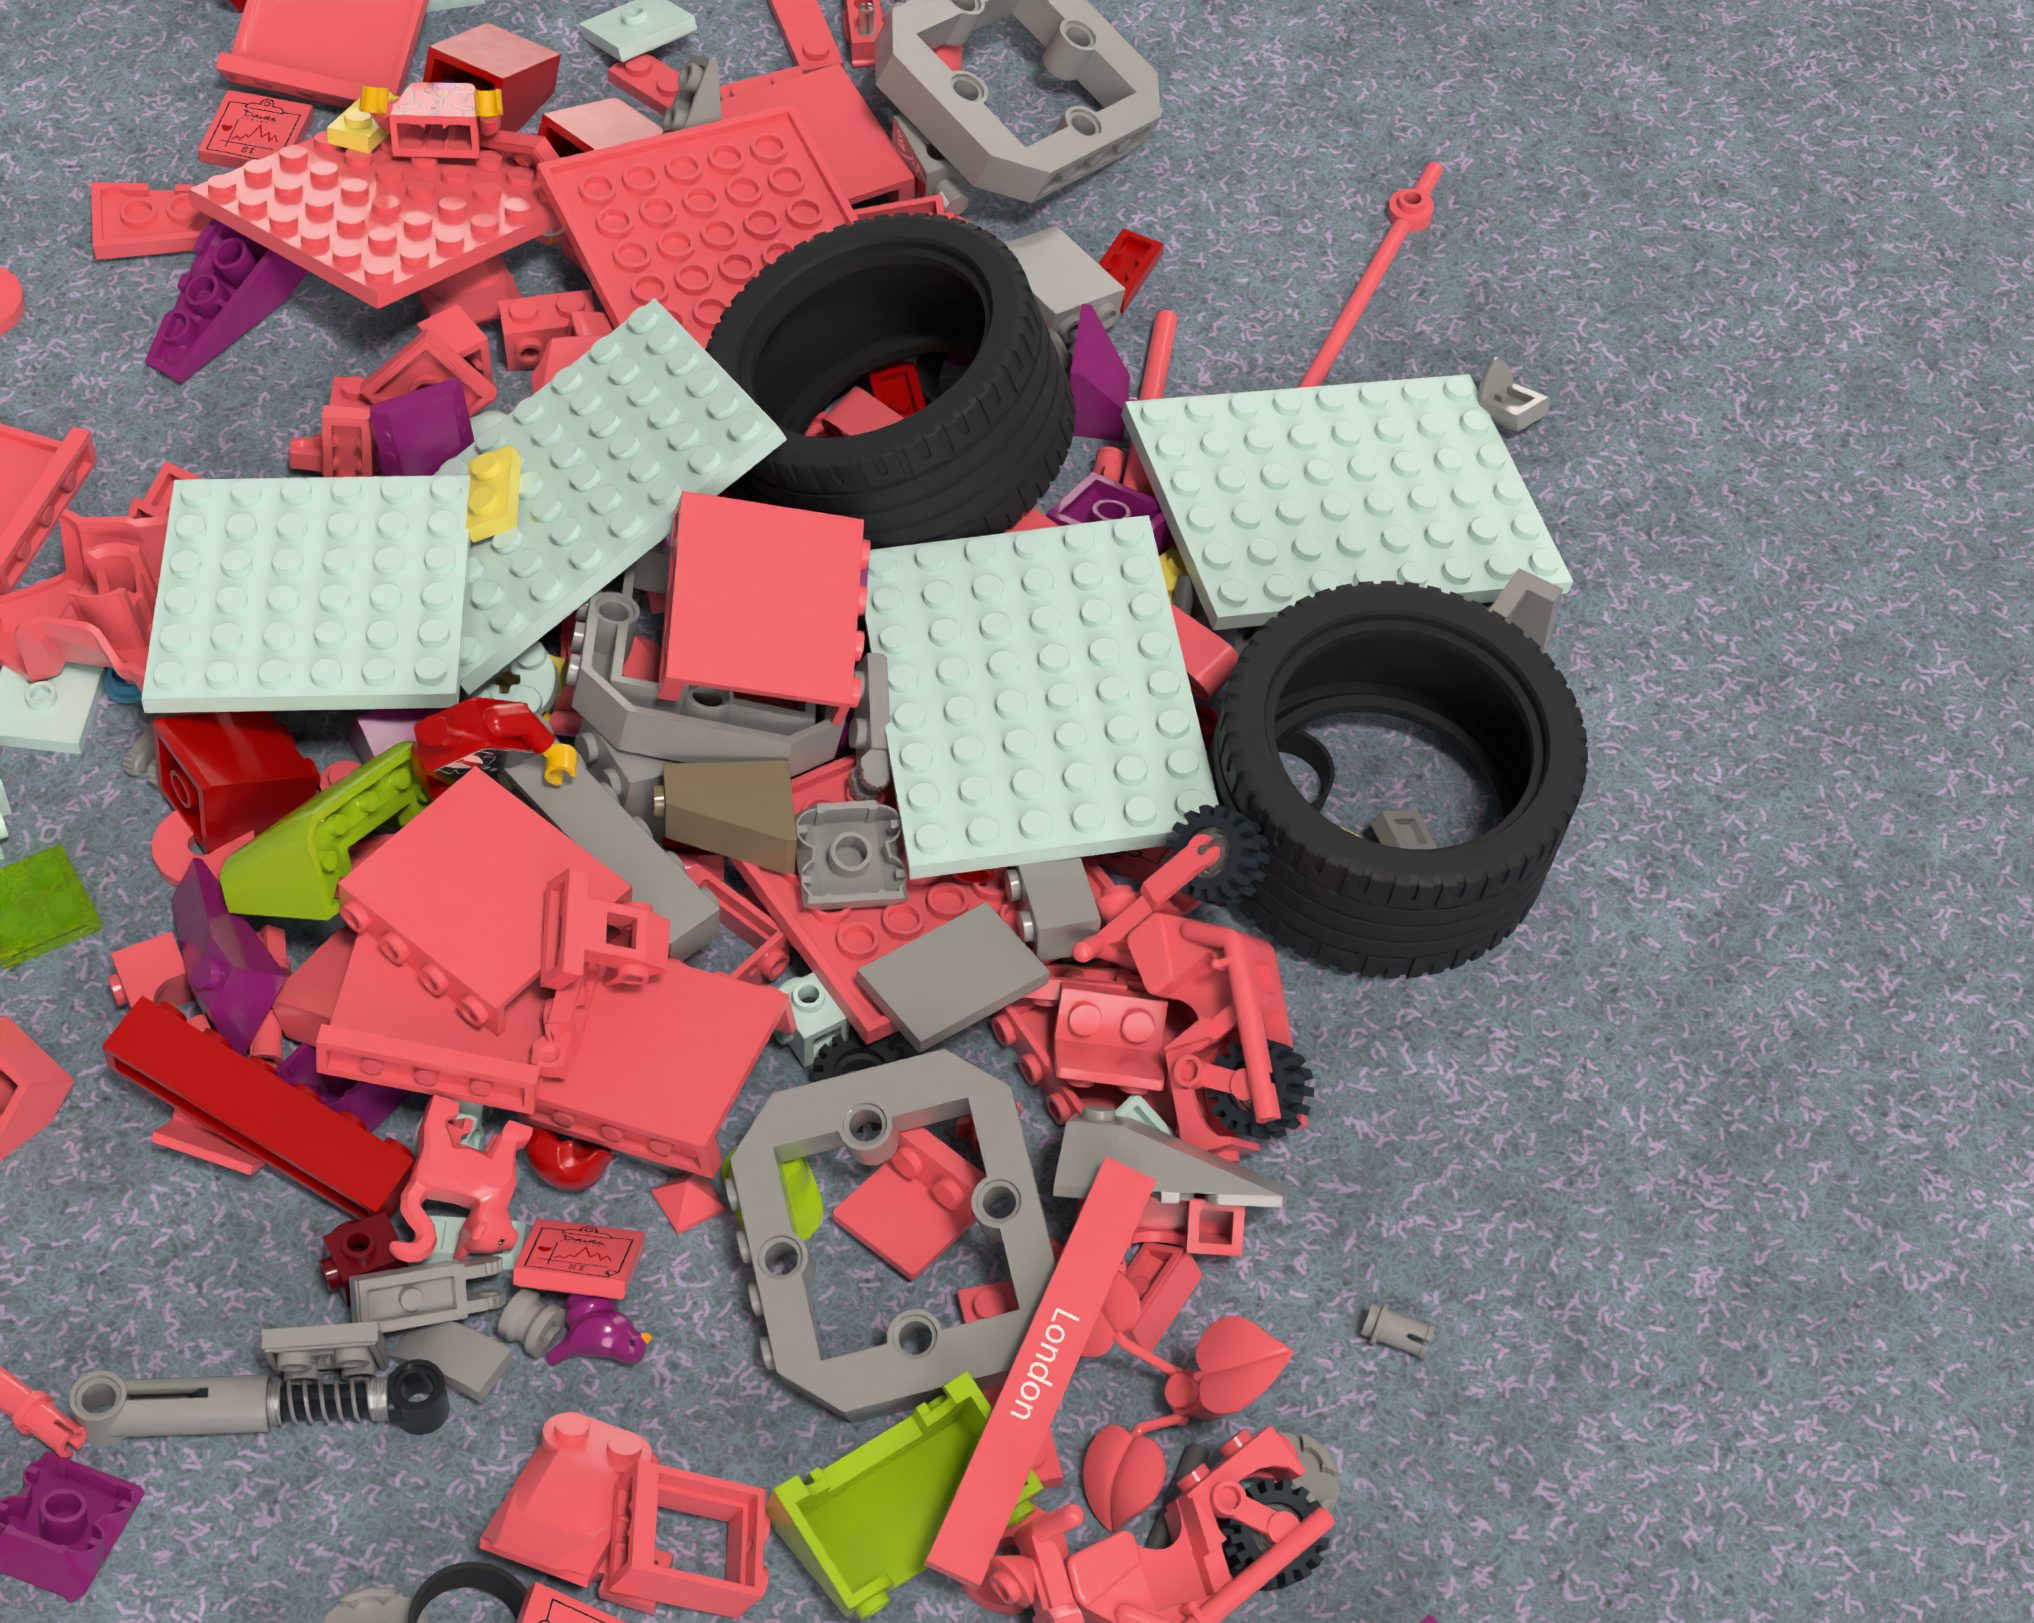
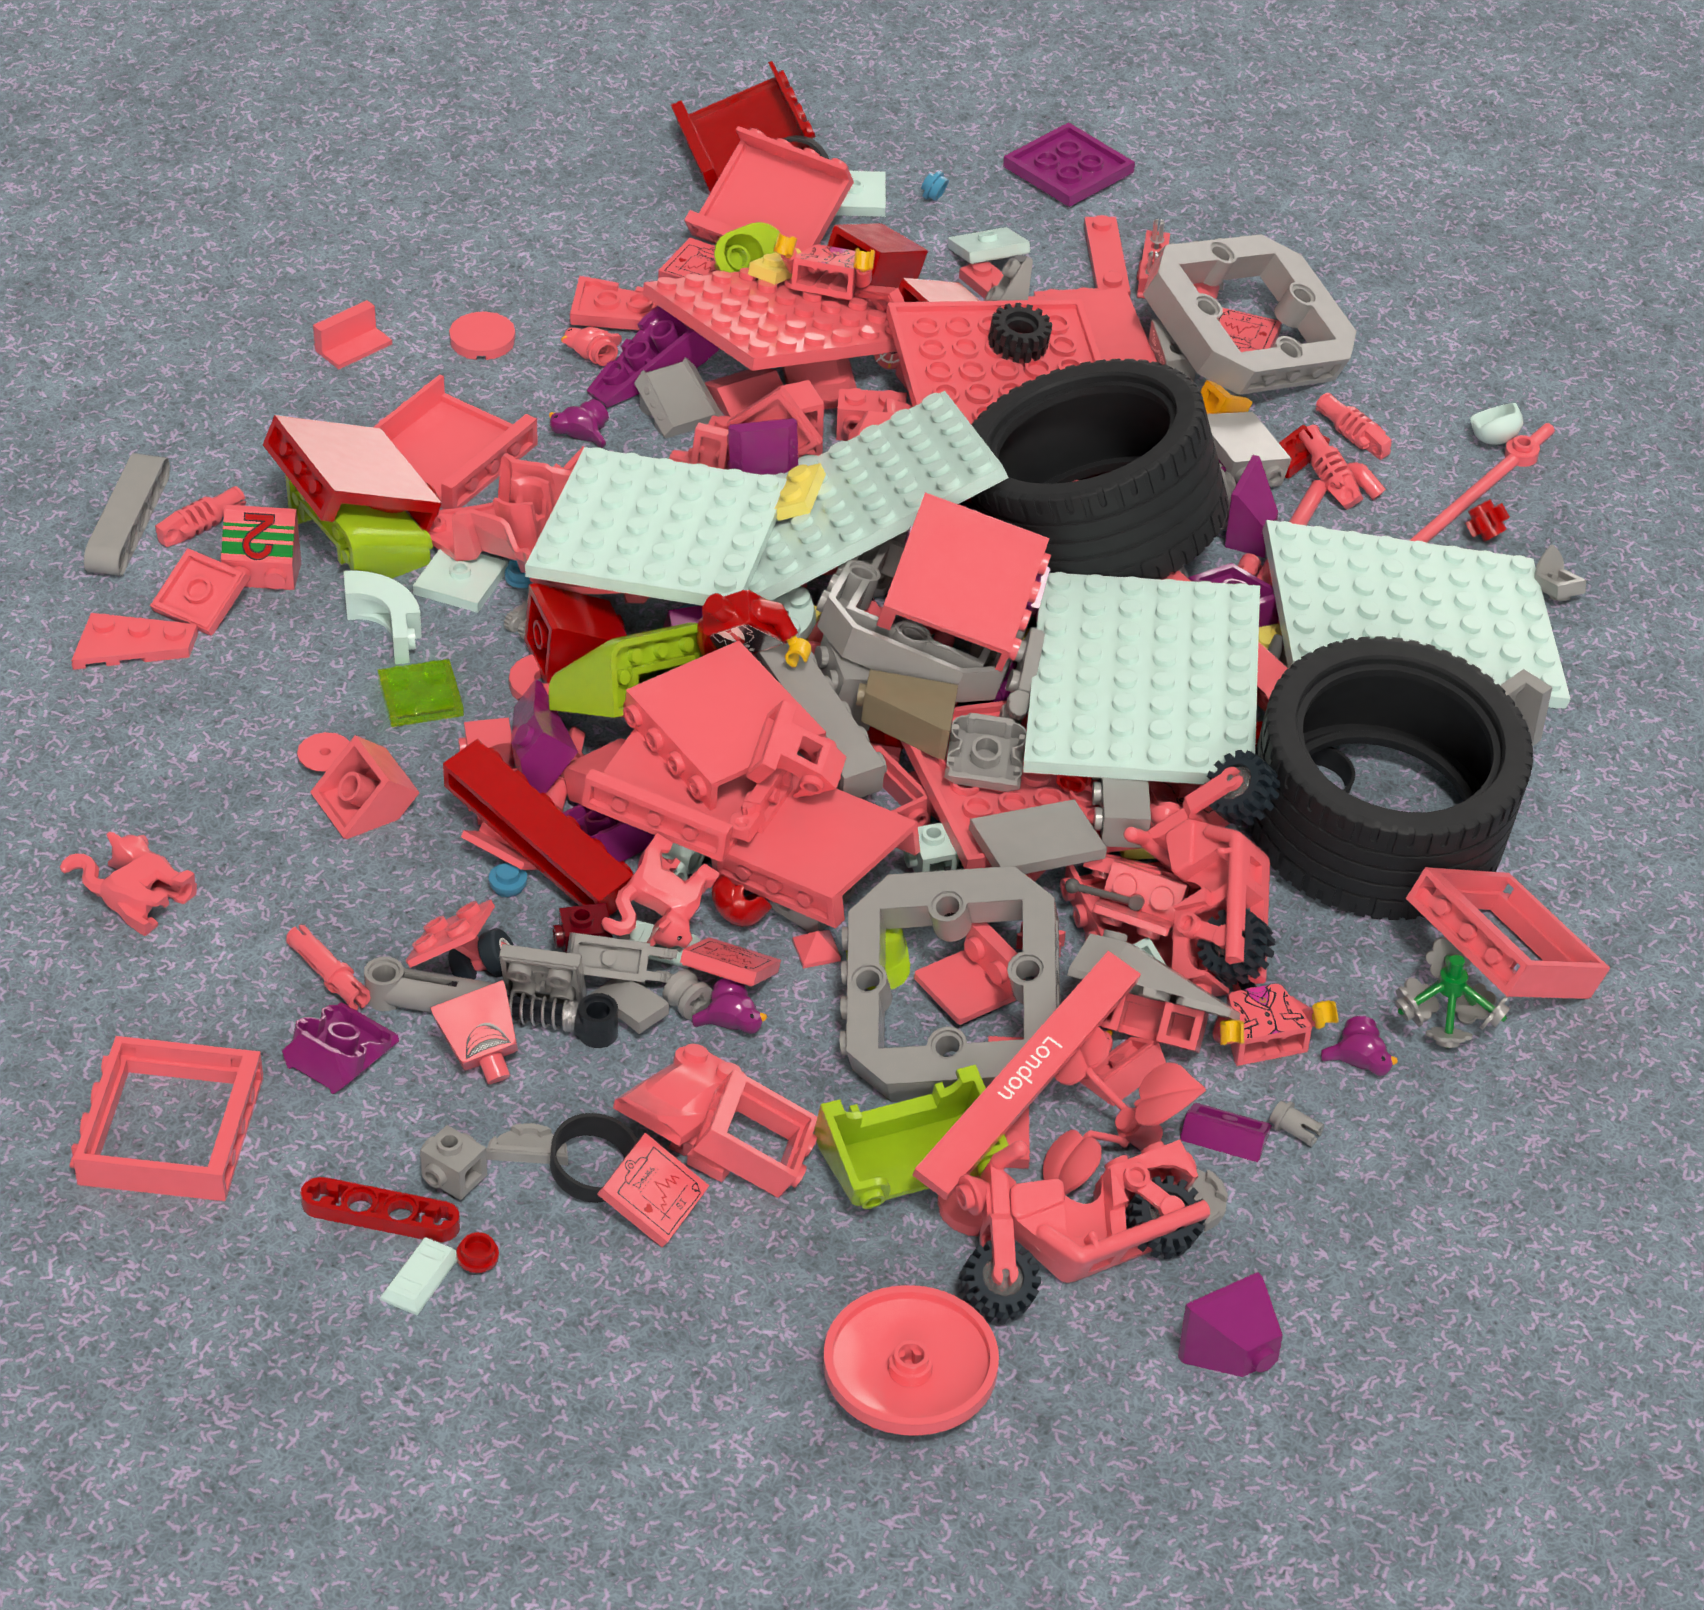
camera: 15 degrees right, 10 degrees down
(137, 288) = (593, 344): none -> coral animal
(152, 417) = (581, 422): none -> magenta animal
(198, 1319) = (460, 936): none -> coral plate
(232, 1190) = (507, 880): none -> dark azure plate
(259, 1461) = (479, 1030): none -> coral torso
(276, 354) = (676, 398): none -> light grey slope
(315, 99) = (744, 245): none -> lime piece
(363, 333) = (742, 389): none -> coral slope
(730, 158) = (1032, 336): none -> black tyre
(1009, 219) = (1220, 401): none -> light orange panel
(1018, 99) = (1250, 331): none -> coral tile
(1103, 1039) = (1134, 902): none -> dark grey hinge
(1178, 290) = (1331, 468): none -> coral hinge
(1190, 215) = (1355, 426): none -> coral hinge
(1217, 292) = (1366, 480): none -> coral arm
(1321, 1364) = (1225, 1132): none -> magenta slope
(1328, 1182) = (1270, 1023): none -> coral torso
(1372, 176) = (1497, 424): none -> light aqua hair
(1398, 329) = (1487, 520): none -> red gear
(1452, 1190) = (1361, 1047): none -> magenta animal
(1564, 1081) = (1472, 1003): none -> light grey plant
(1577, 1011) = (1452, 905): none -> coral window

